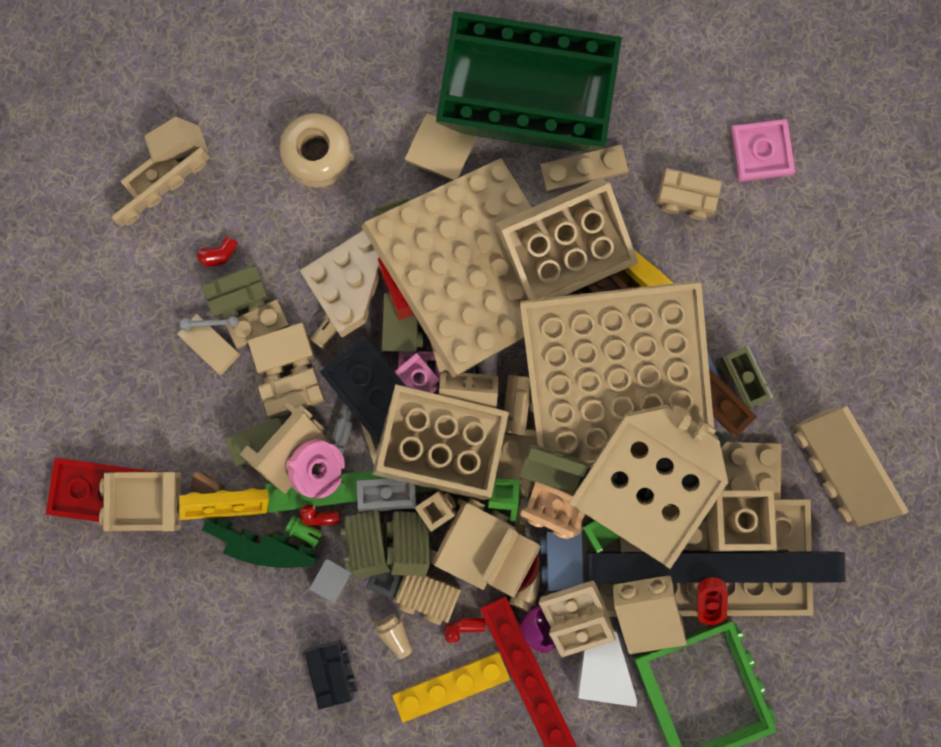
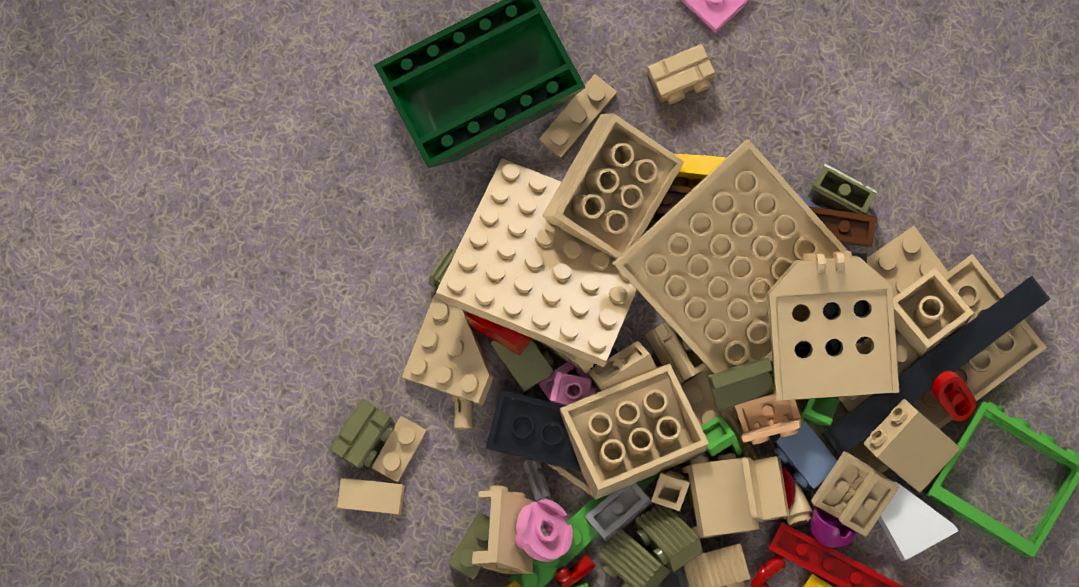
camera: 30 degrees left, 5 degrees down
(153, 181) = (219, 390): tan bracket -> none
(174, 140) = (214, 345): tan slope -> none
(186, 324) = (340, 493): light grey hinge -> none
(217, 256) = (322, 415): red arm -> none
(281, 349) = (437, 454): tan brick -> none
(297, 389) = (476, 475): tan brick -> none
(322, 171) = (340, 289): tan piece -> none
(440, 149) = (445, 188): tan slope -> none
(848, 467) = (981, 203): tan slope -> none

